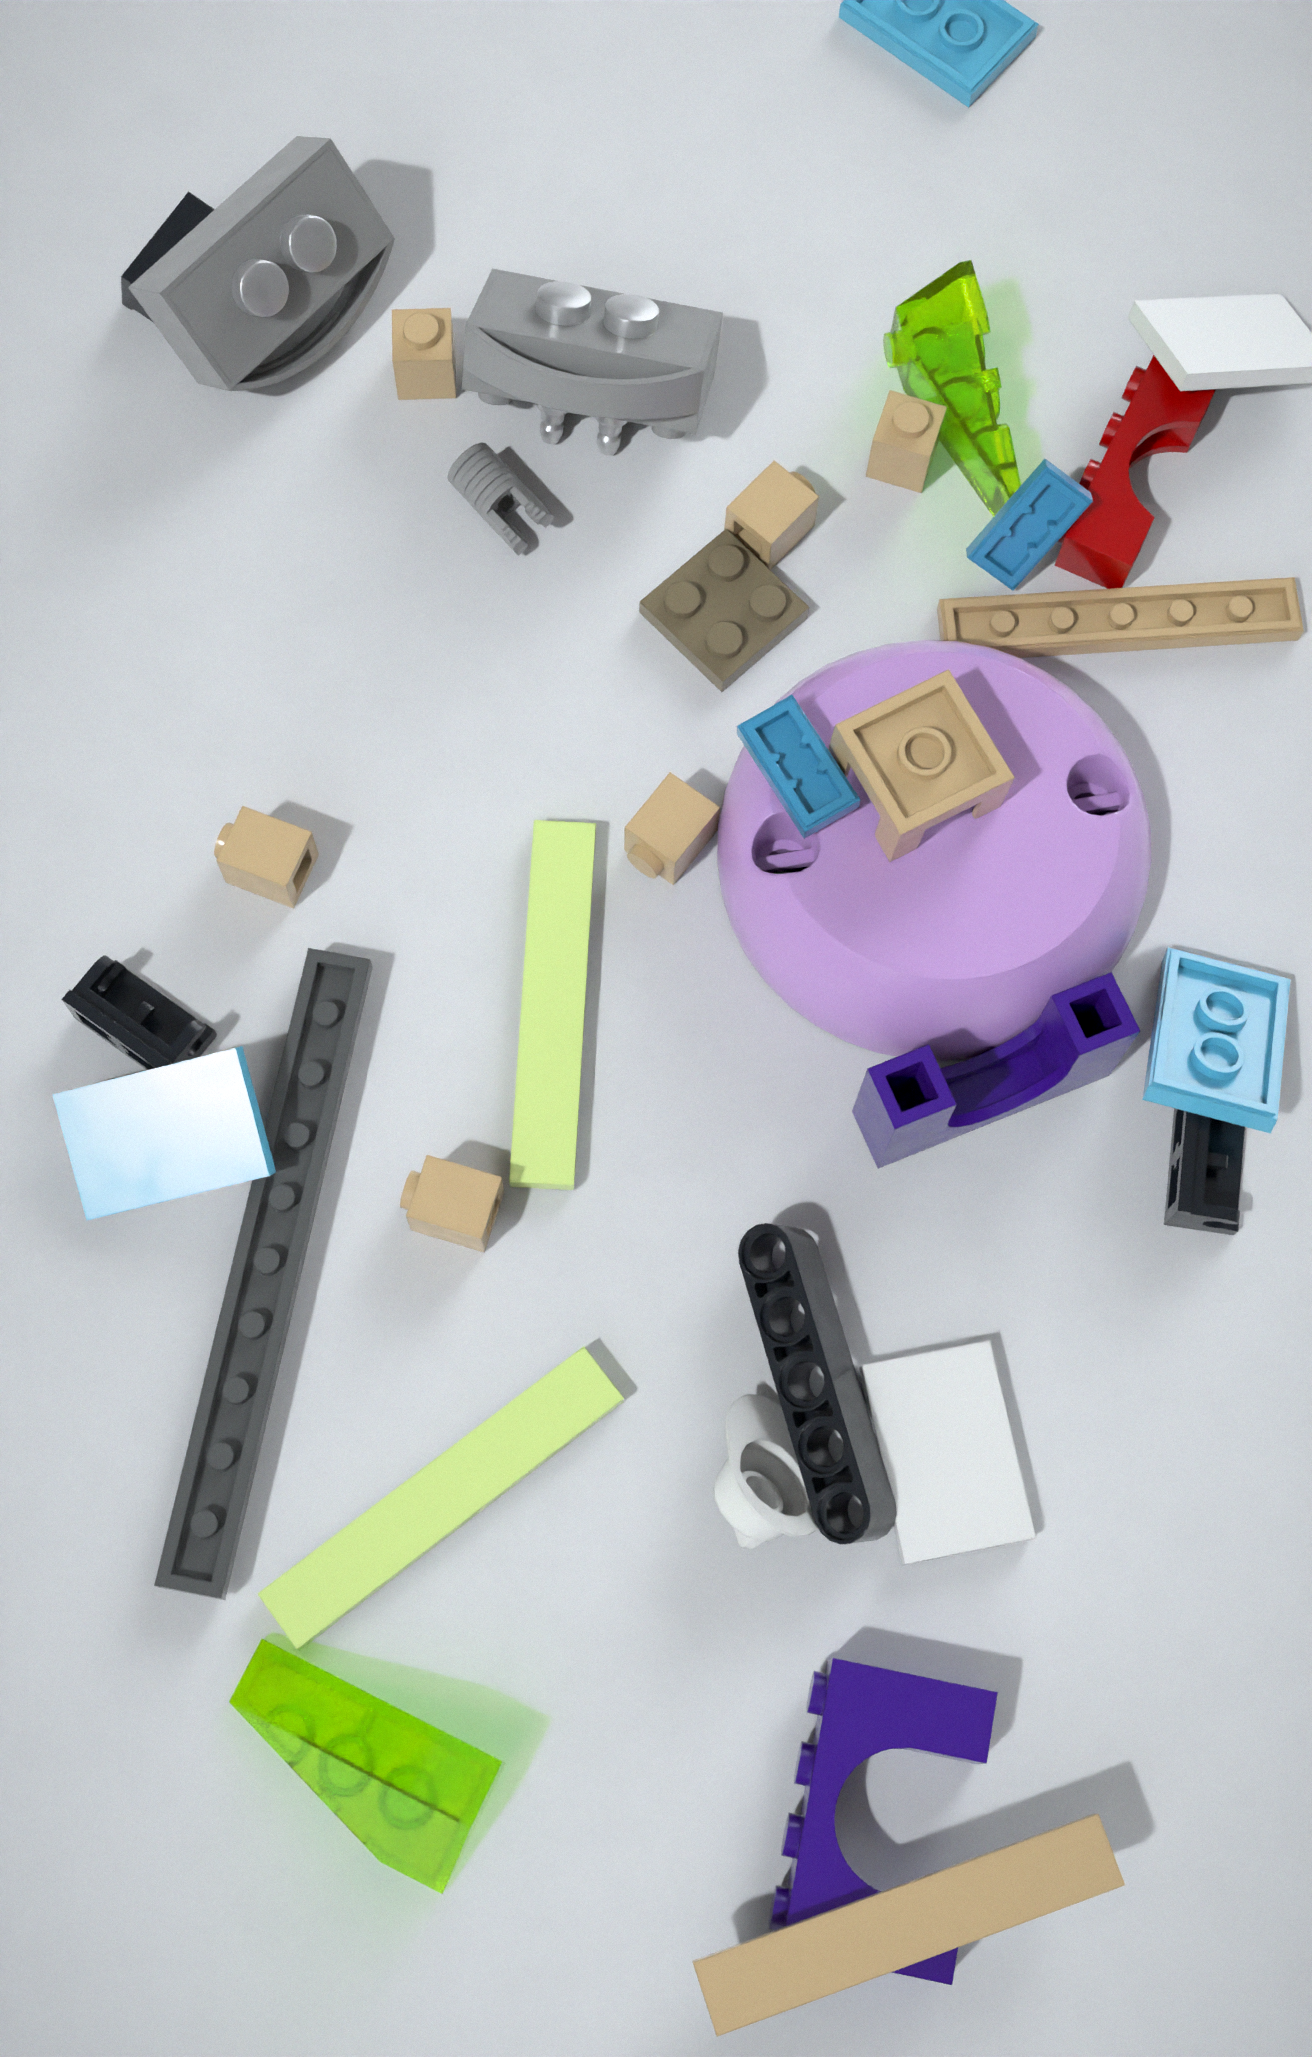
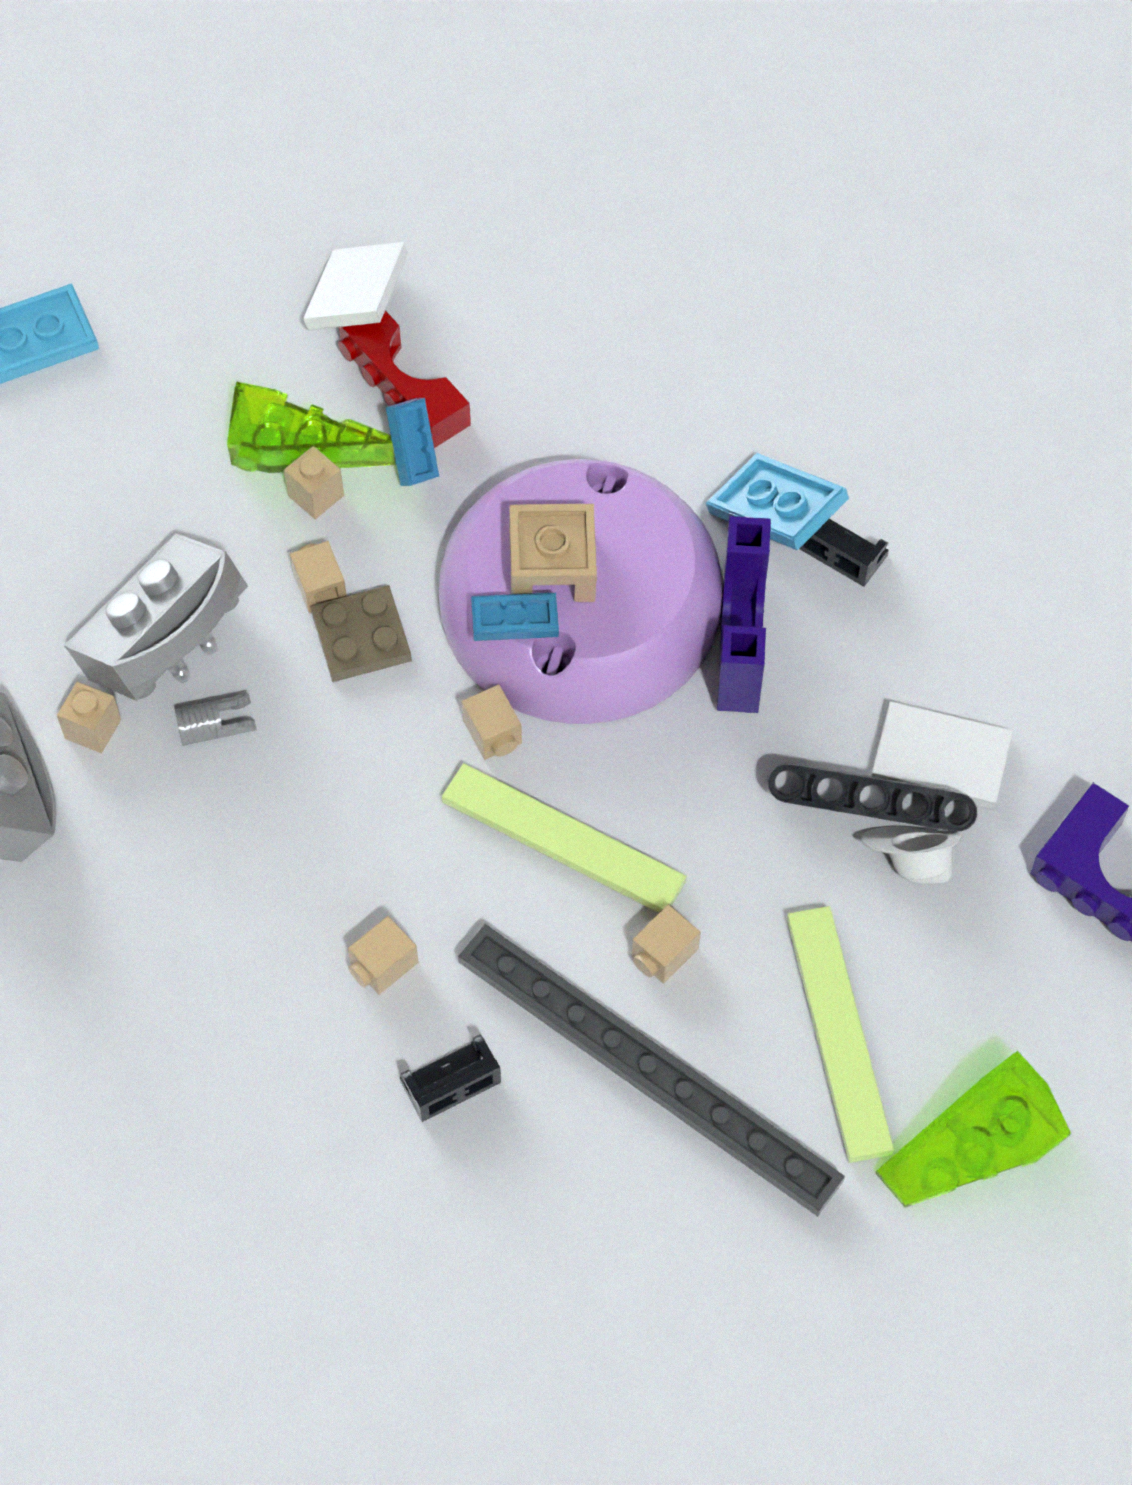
camera: 60 degrees left, 10 degrees down
(164, 1133) = (539, 1085): tile -> none
(1126, 618) = (489, 431): tan tile -> none

